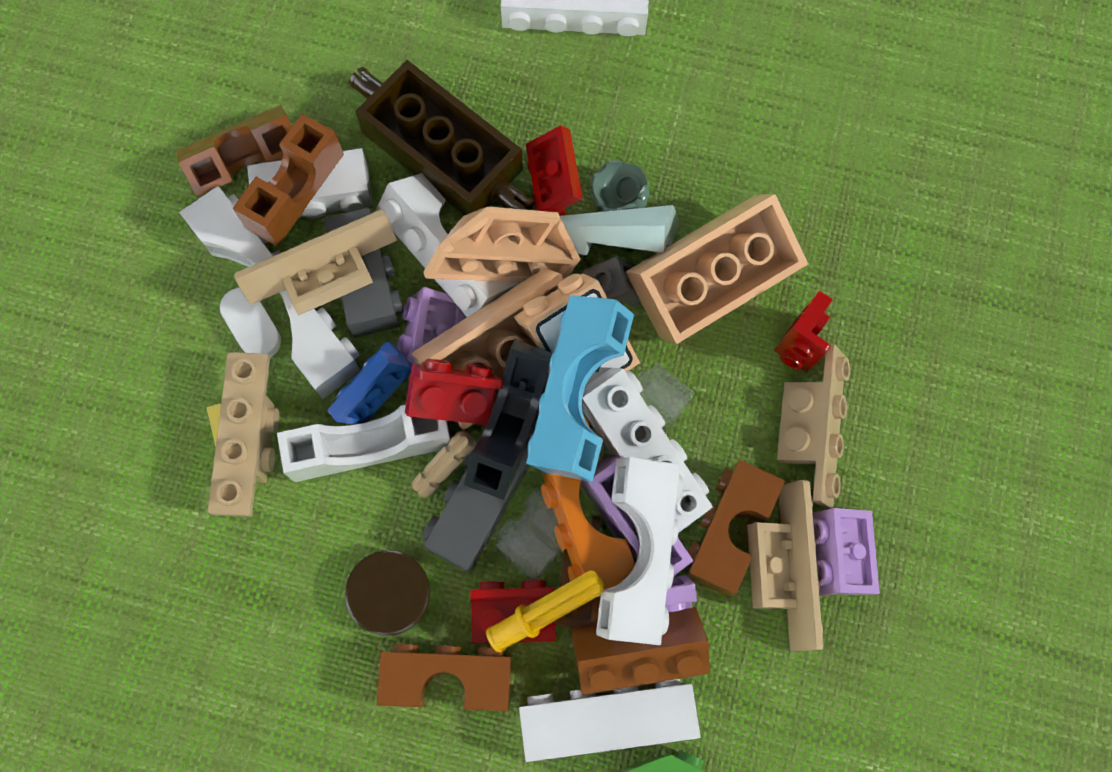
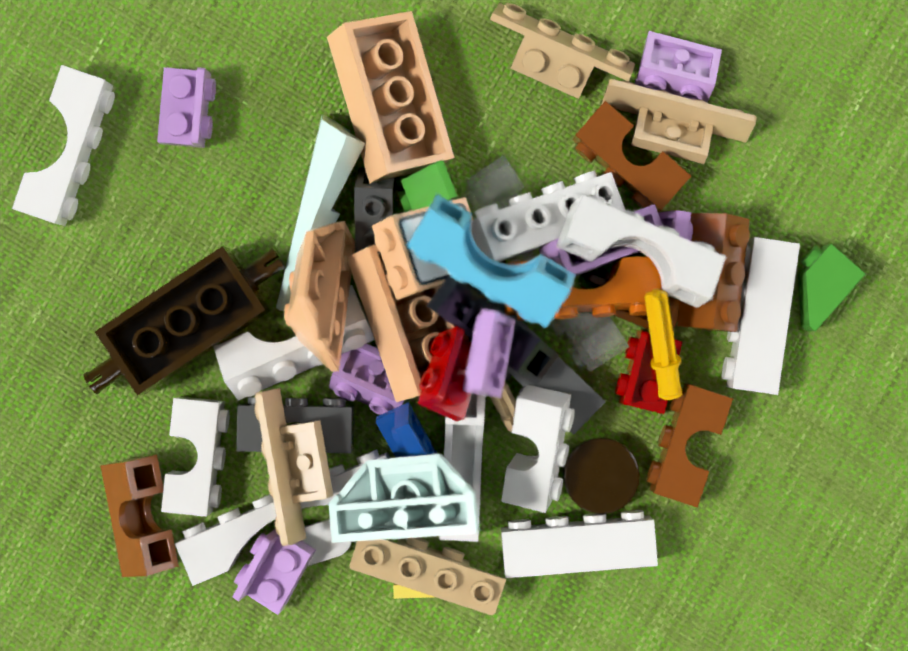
camera: 75 degrees left, 15 degrees up
(209, 286) = (273, 571): none -> lavender bracket
(306, 377) = (403, 500): none -> light aqua wedge
(306, 589) = (578, 545): none -> white brick
(307, 161) = (188, 459): dark orange arch -> none
(429, 509) = (543, 418): none -> white arch
(482, 415) = (489, 354): none -> lavender bracket
(553, 171) = (249, 221): red bracket -> none
(619, 187) = (280, 162): sand green hair -> none
(645, 97) = (185, 107): none -> lavender bracket
(647, 331) = (424, 185): none -> bright green slope
(800, 345) = (467, 32): red bracket -> none

